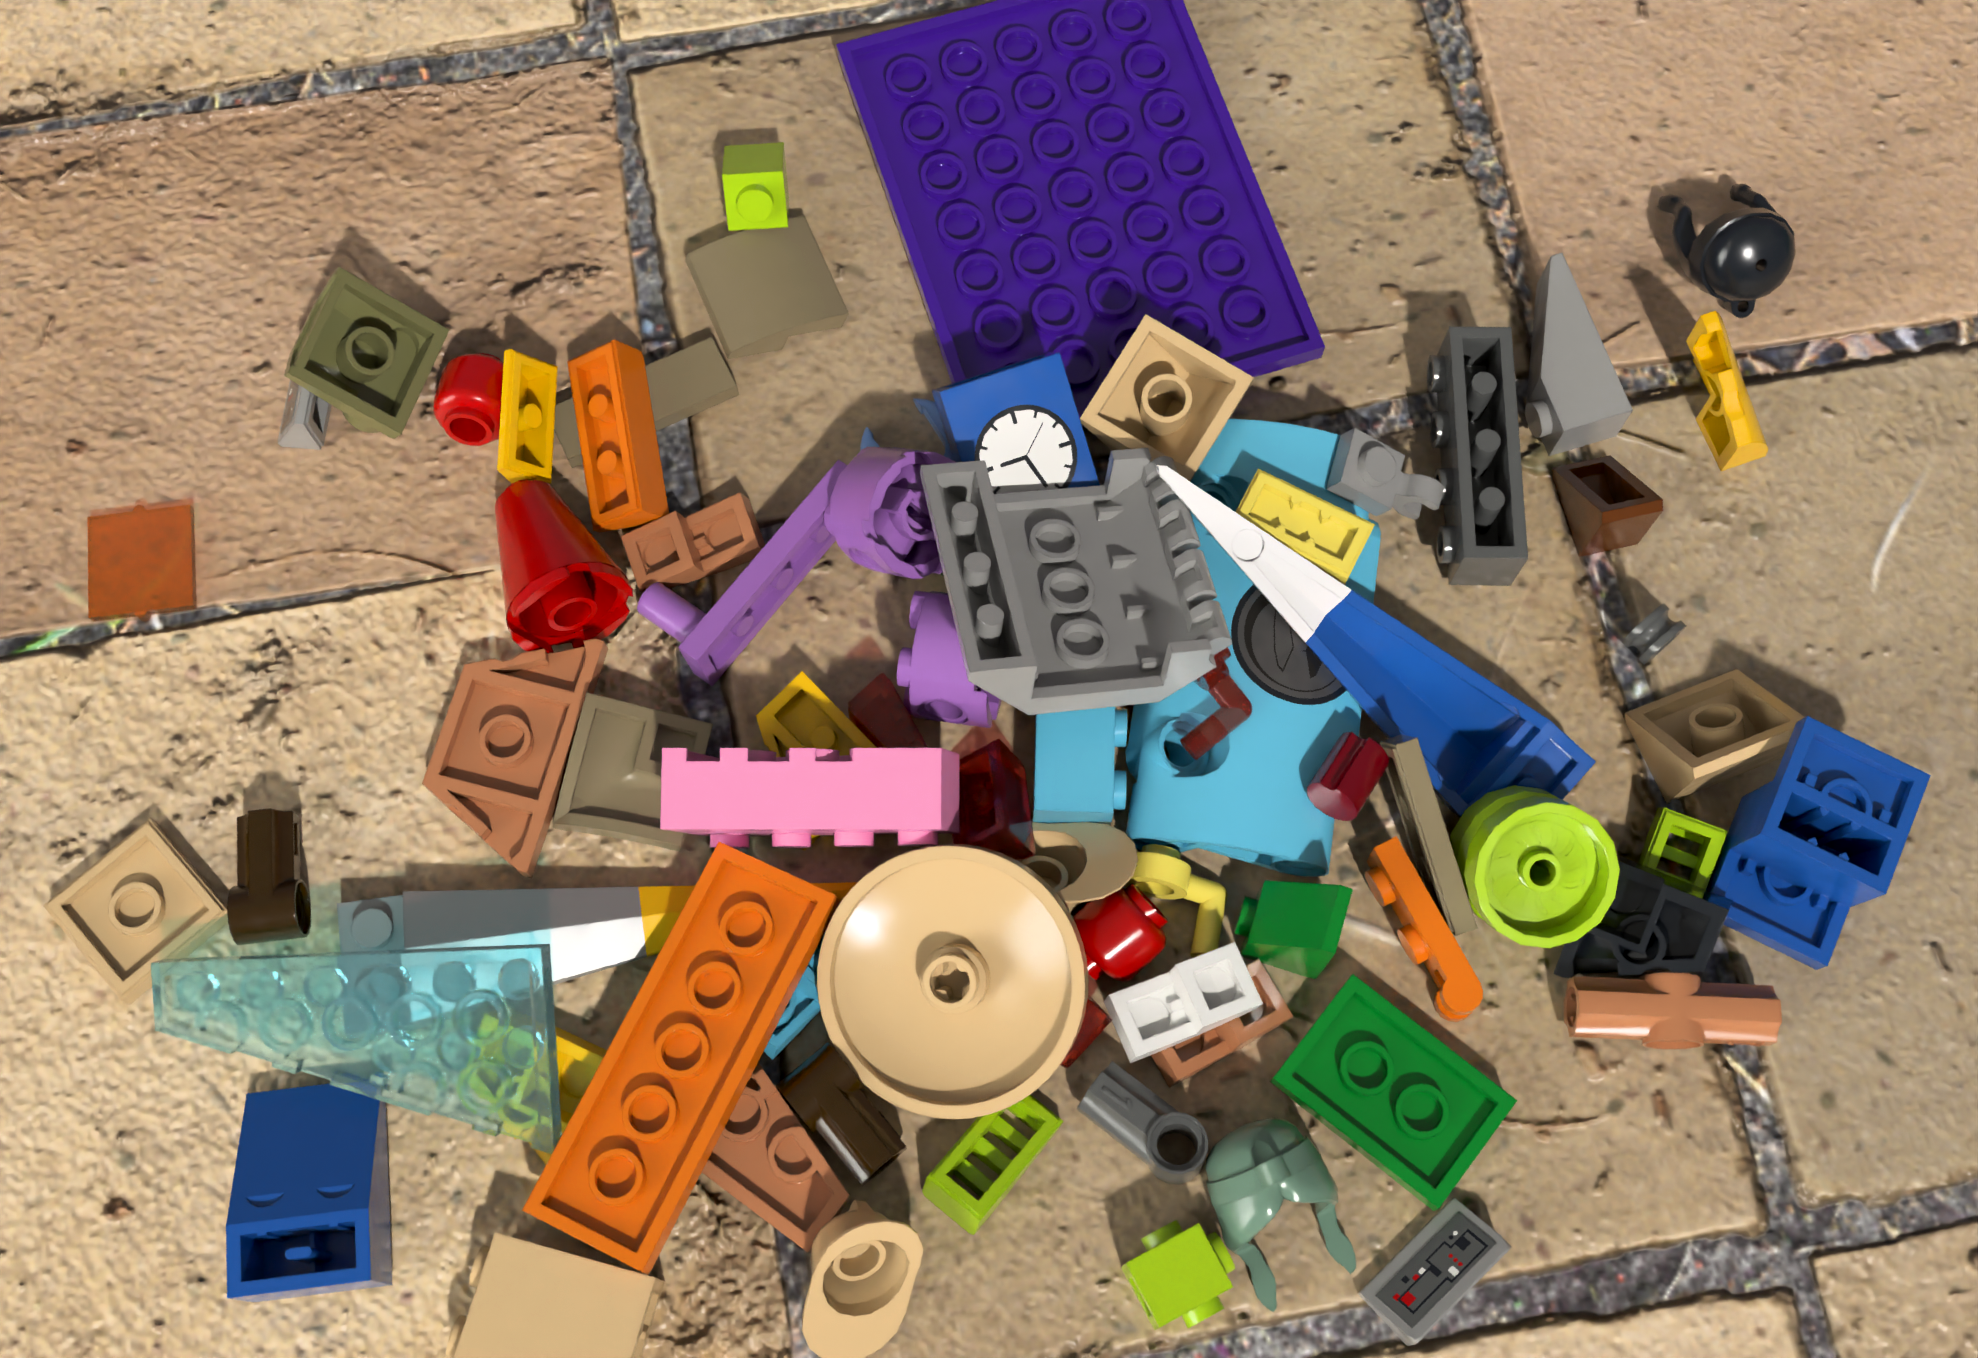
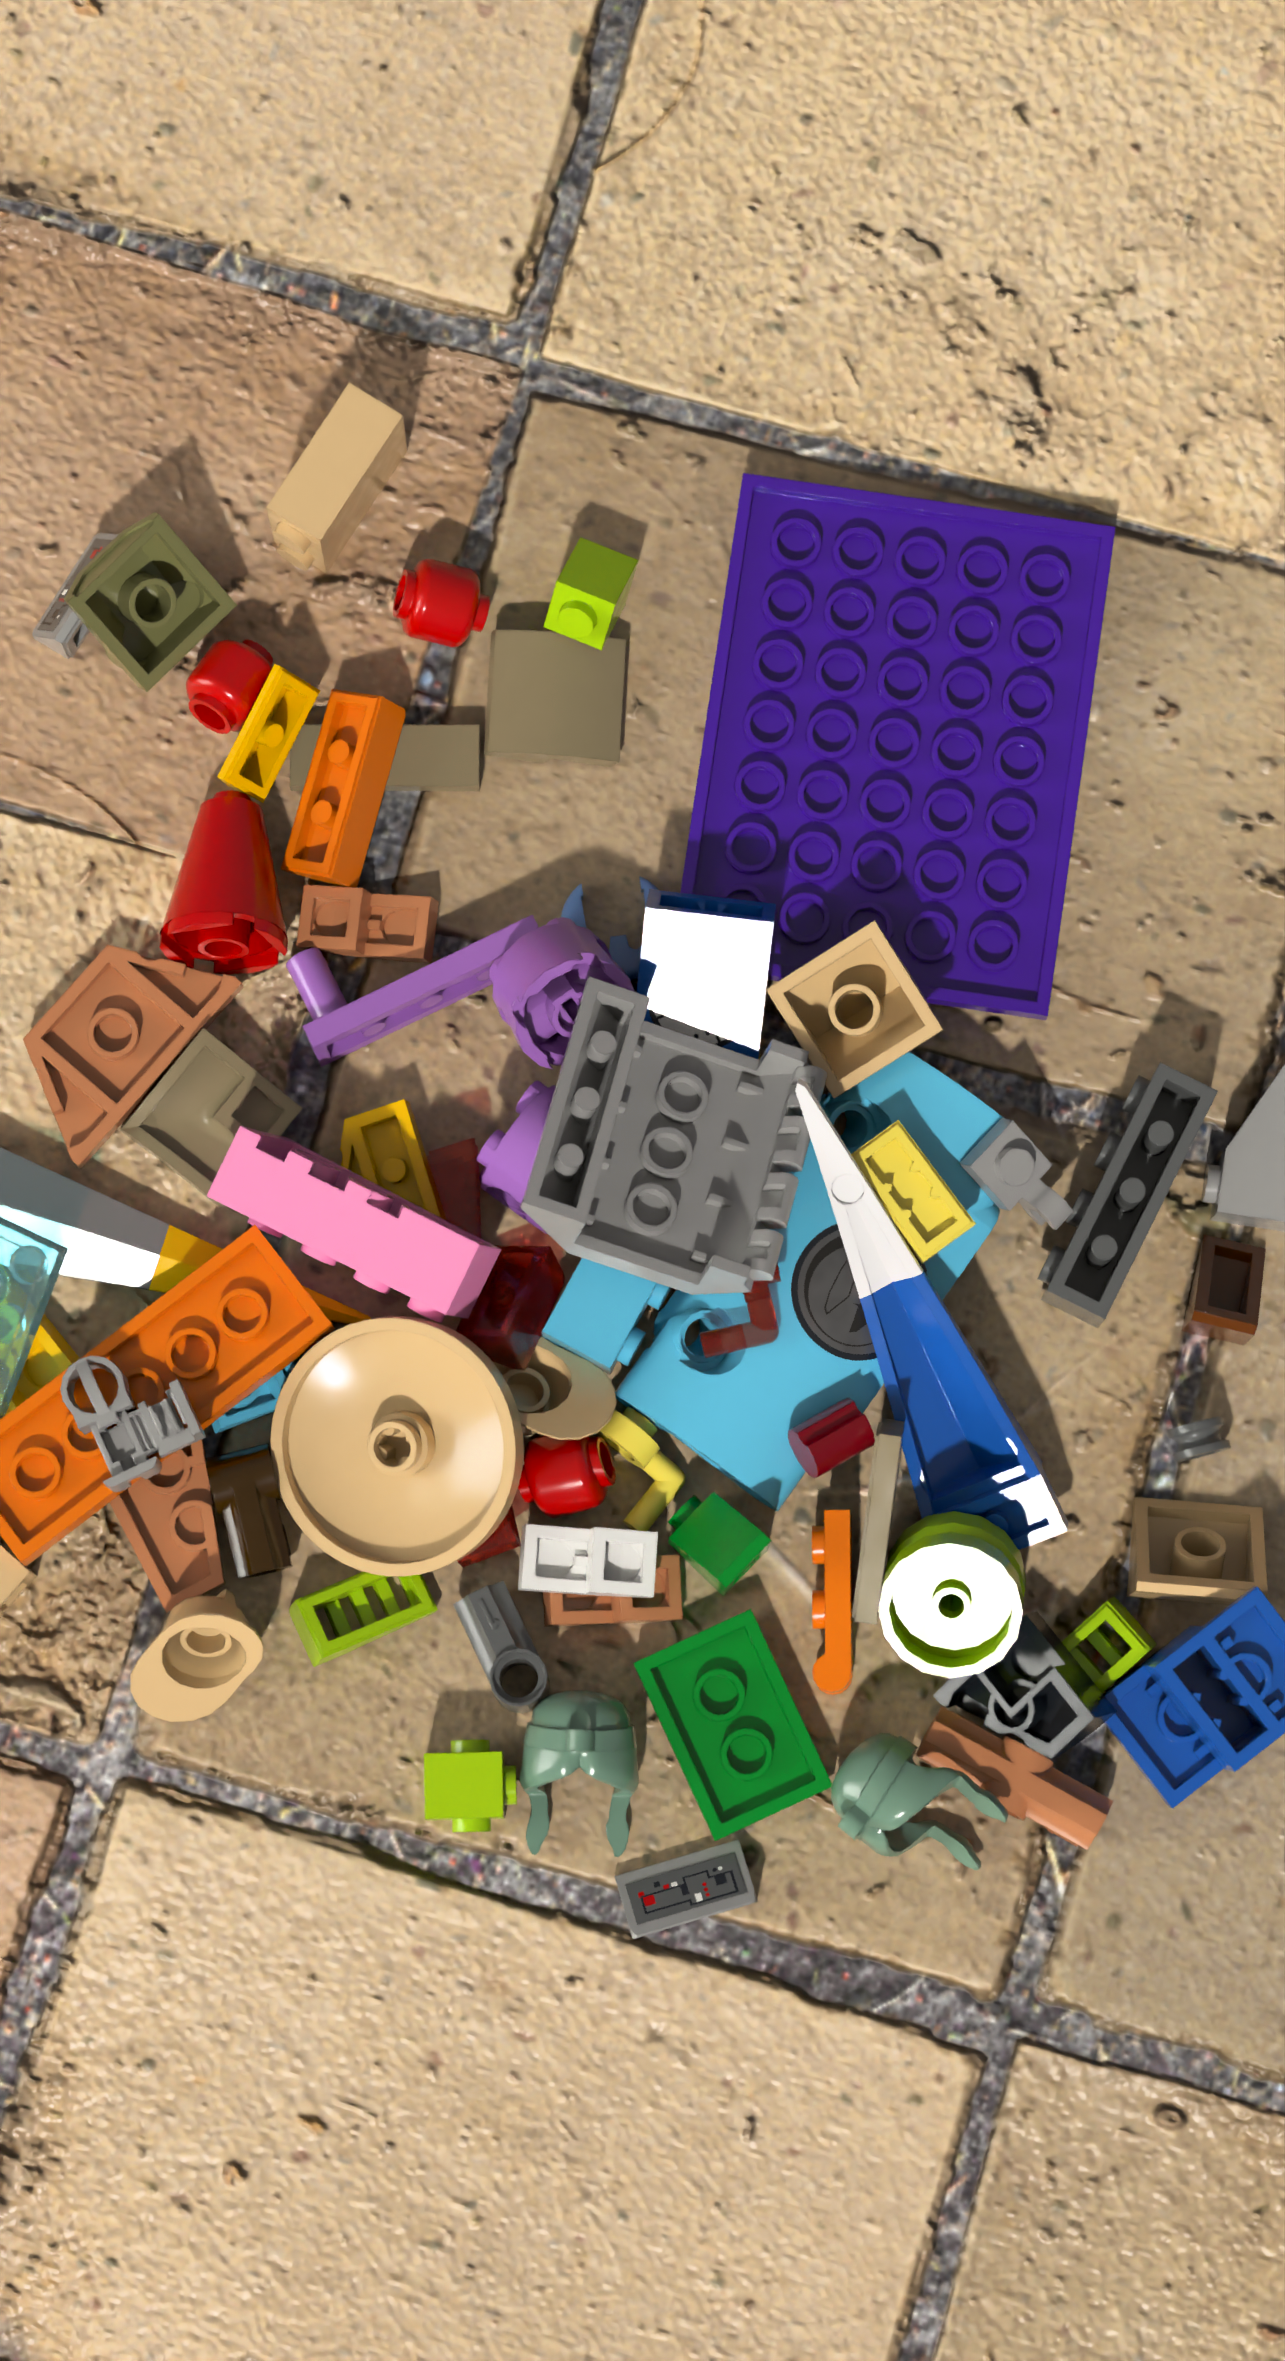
camera: 25 degrees right, 10 degrees up
(489, 186) = (336, 479): none -> tan brick
(629, 253) = (440, 603): none -> red head
(697, 1085) = (137, 1430): none -> light grey piece
(1576, 1079) = (884, 1788): none -> sand green hair

